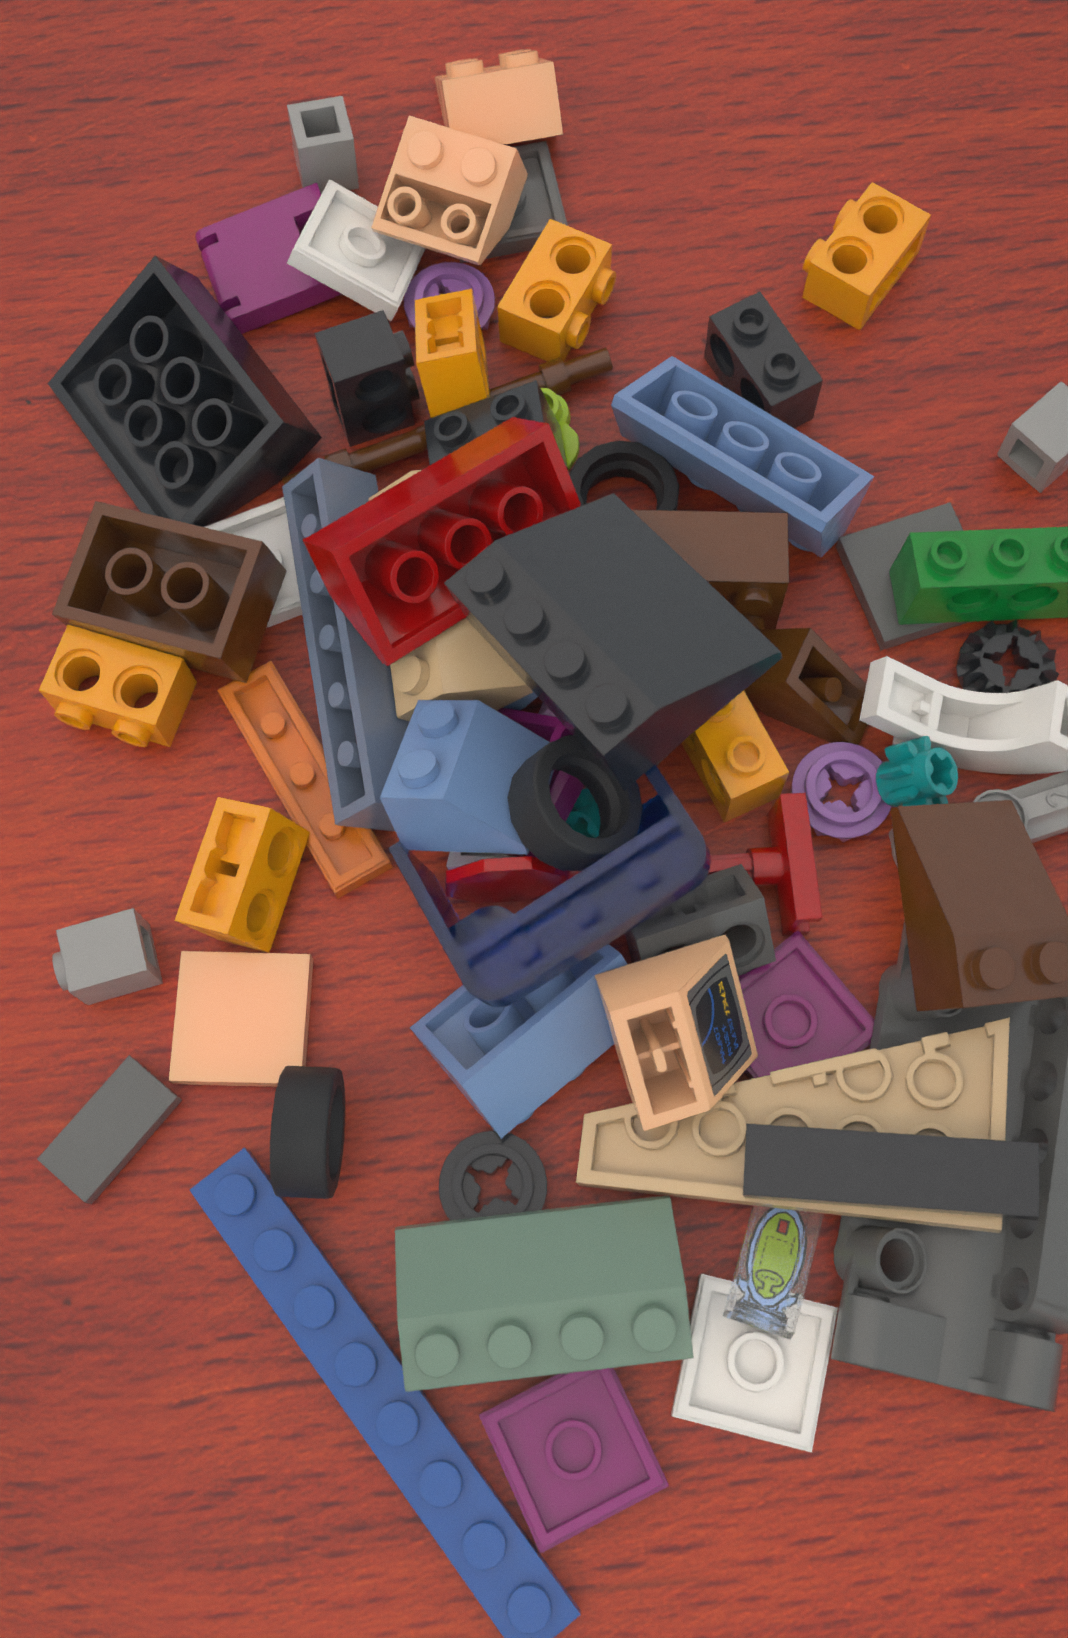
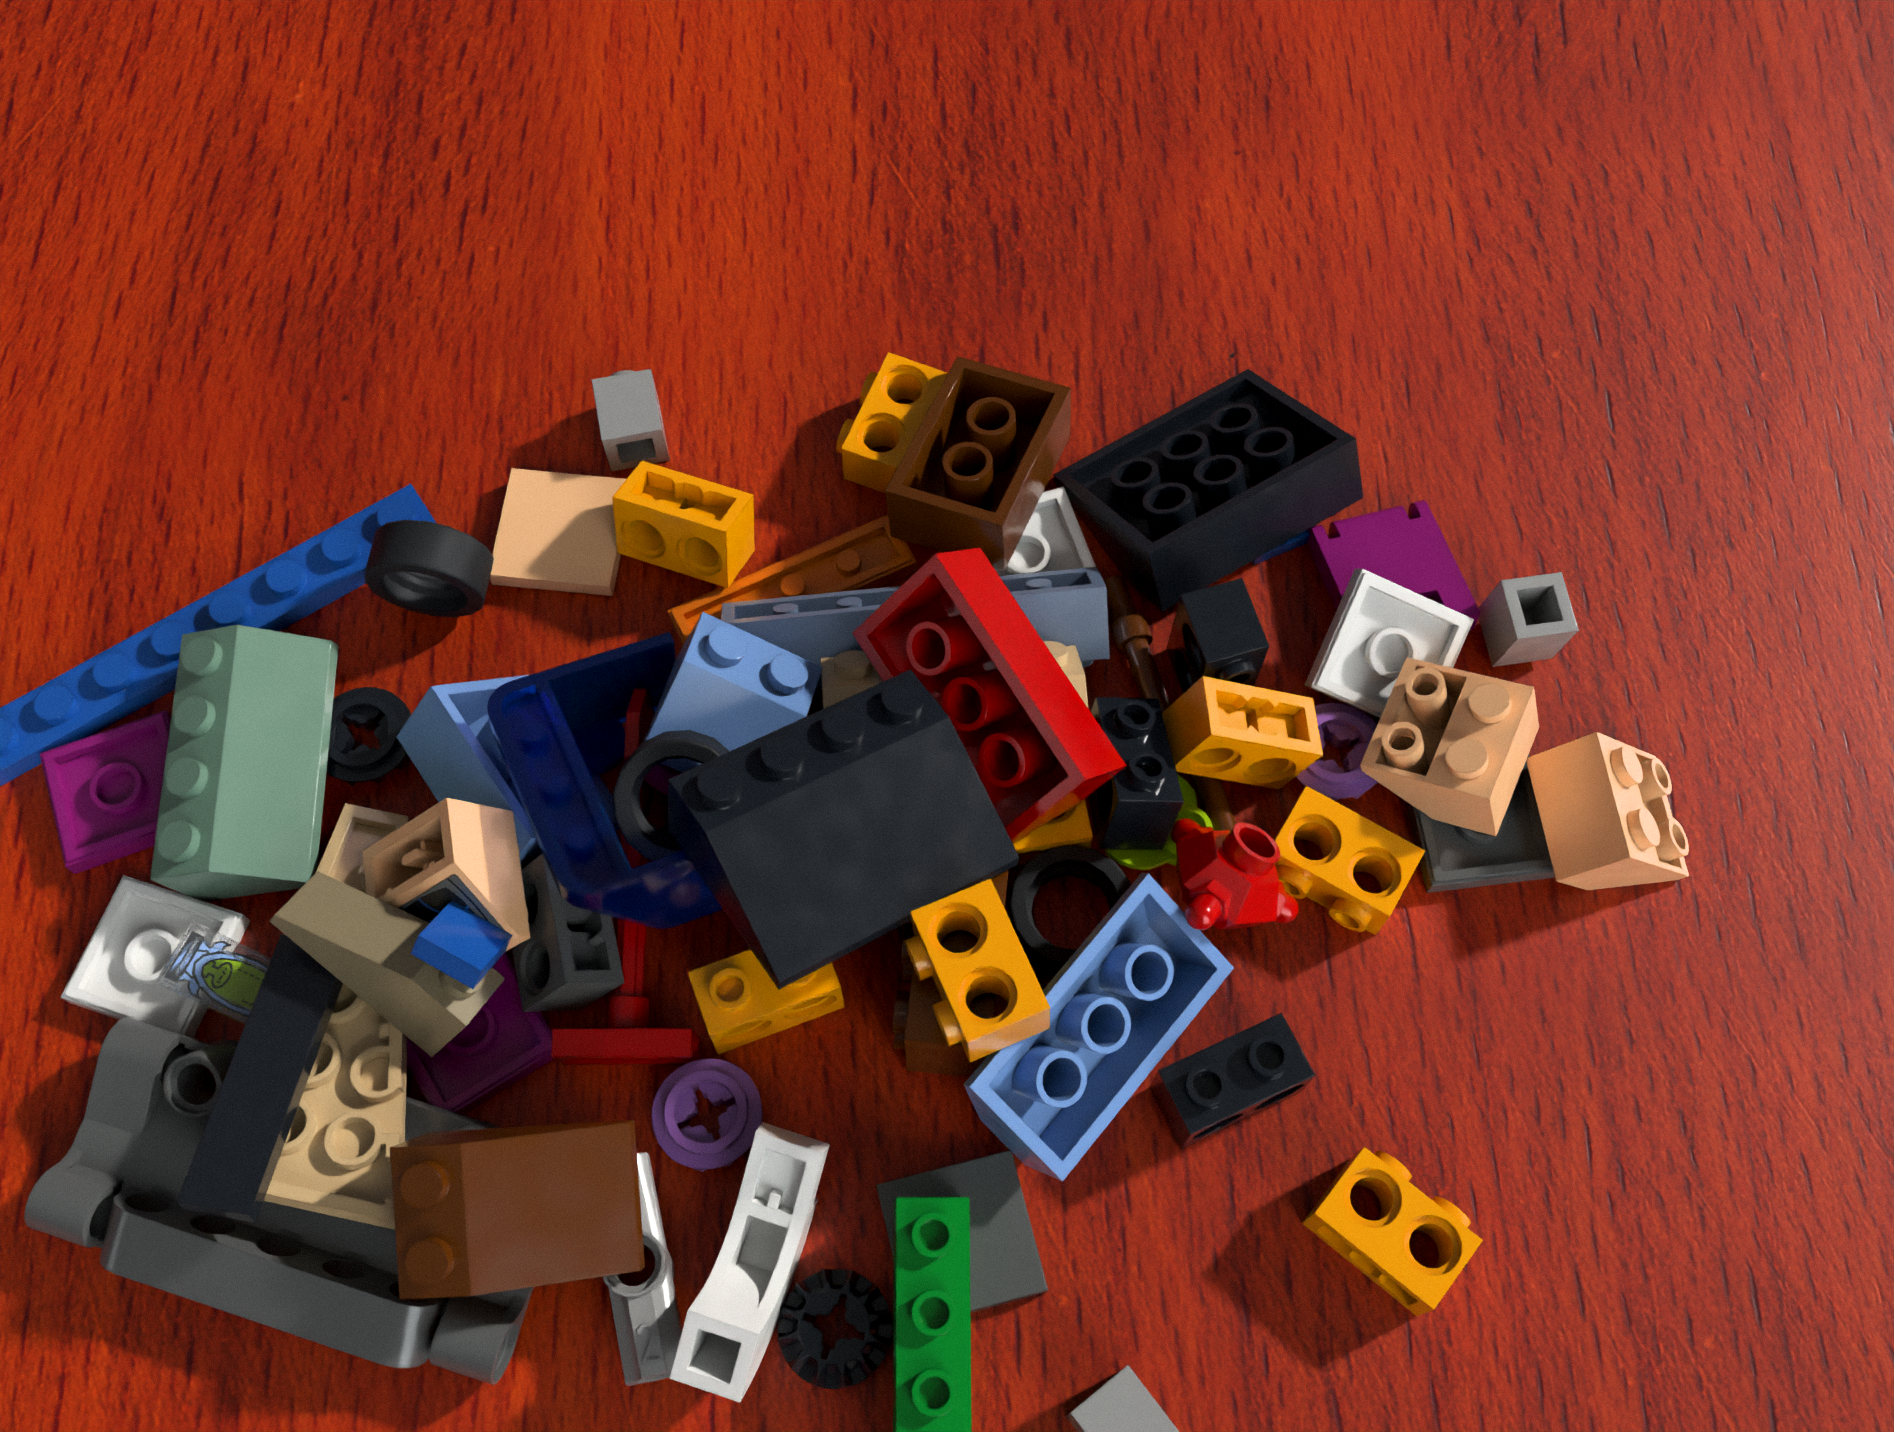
camera: 90 degrees right, 5 degrees down
(109, 1130) = (480, 425): dark grey tile -> none
(593, 356) = (1230, 877): none -> red rock
(721, 496) = (992, 966): none -> light orange brick
(751, 984) = (461, 944): none -> blue tile
(759, 1071) = (370, 952): none -> dark tan slope
(810, 688) = (830, 1074): reddish brown slope -> none
(916, 774) = (696, 1184): teal gear -> none

